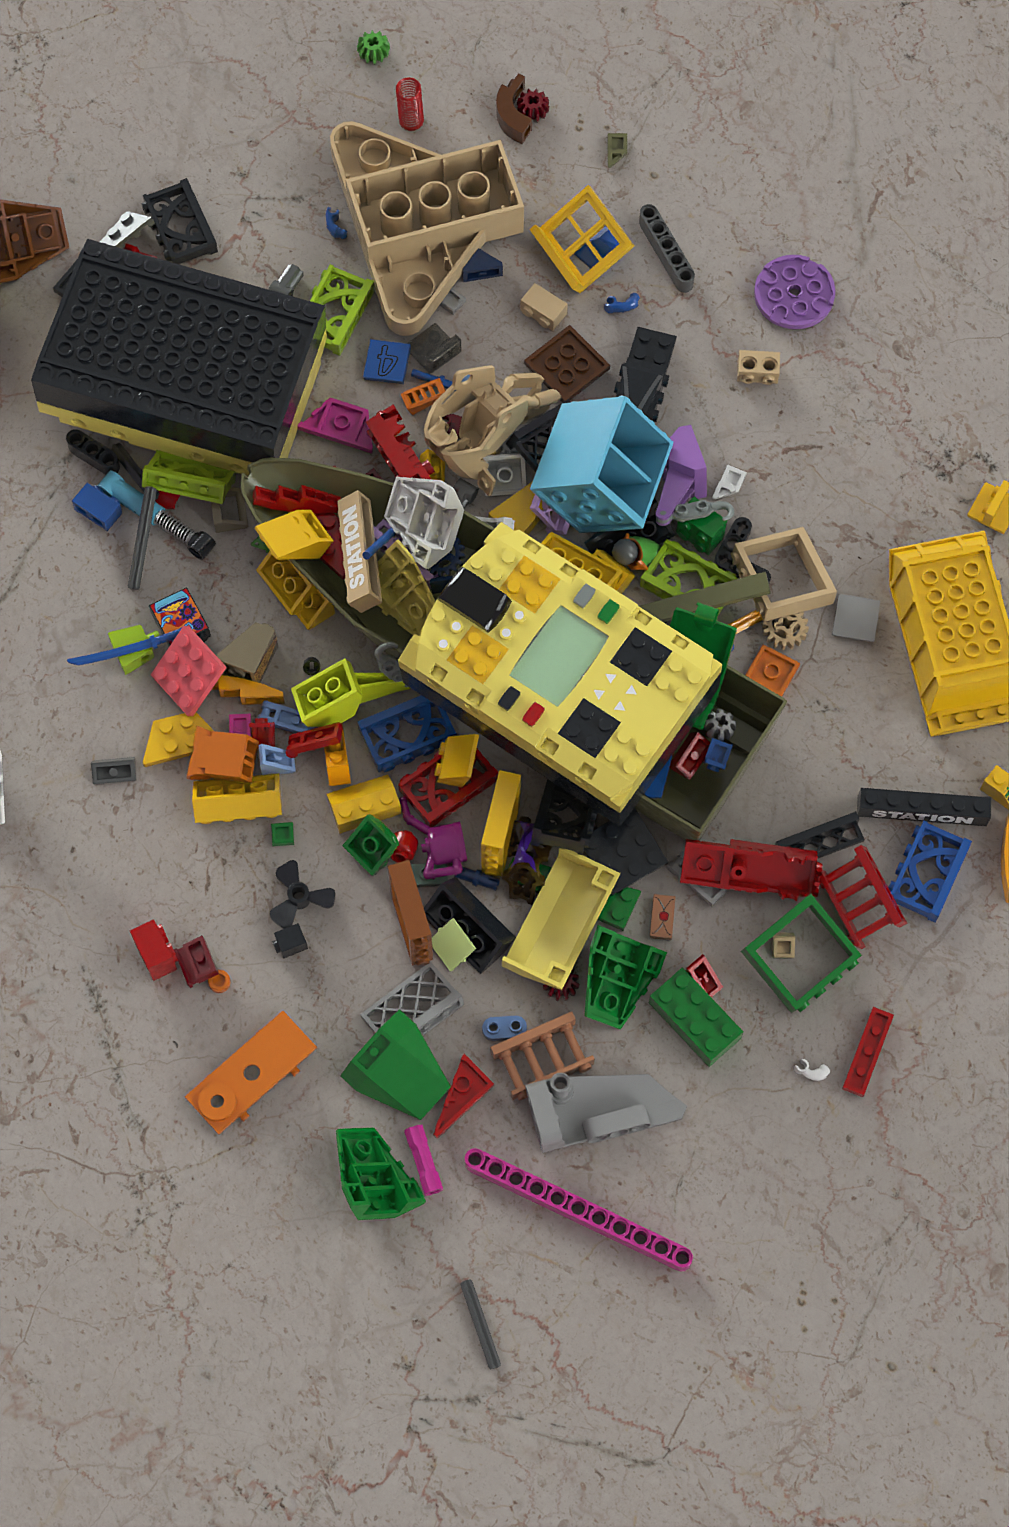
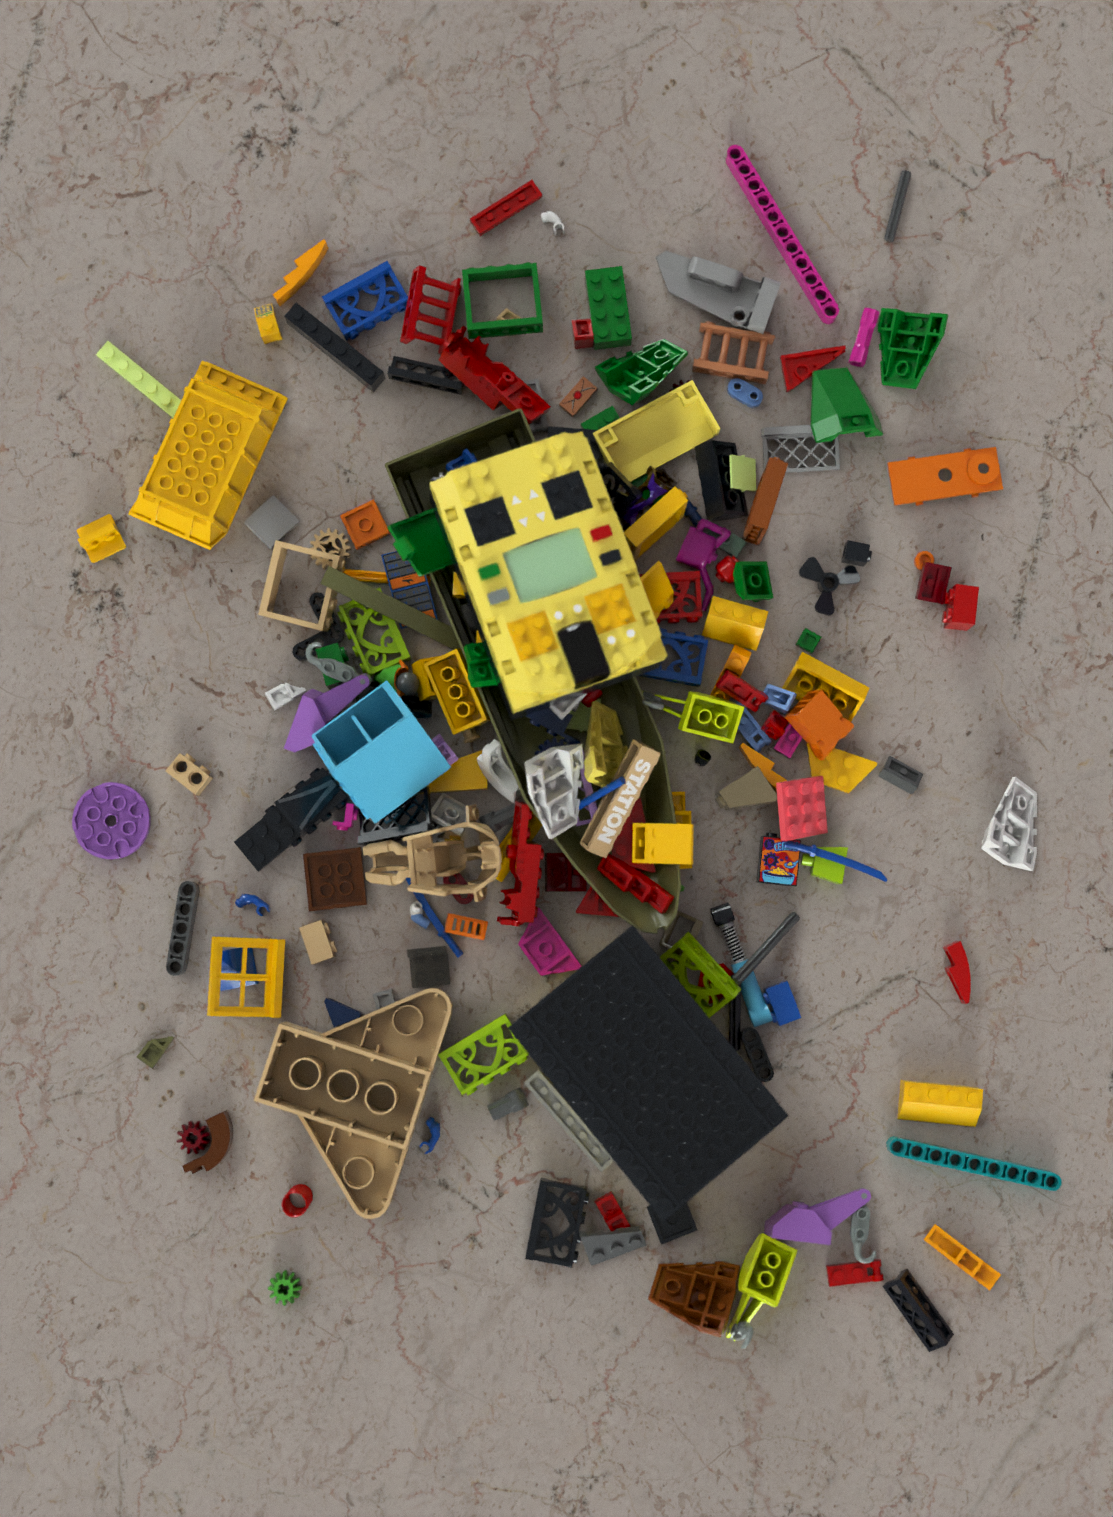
camera: 145 degrees left, 15 degrees up
(387, 361) = (474, 978): blue tile -> none

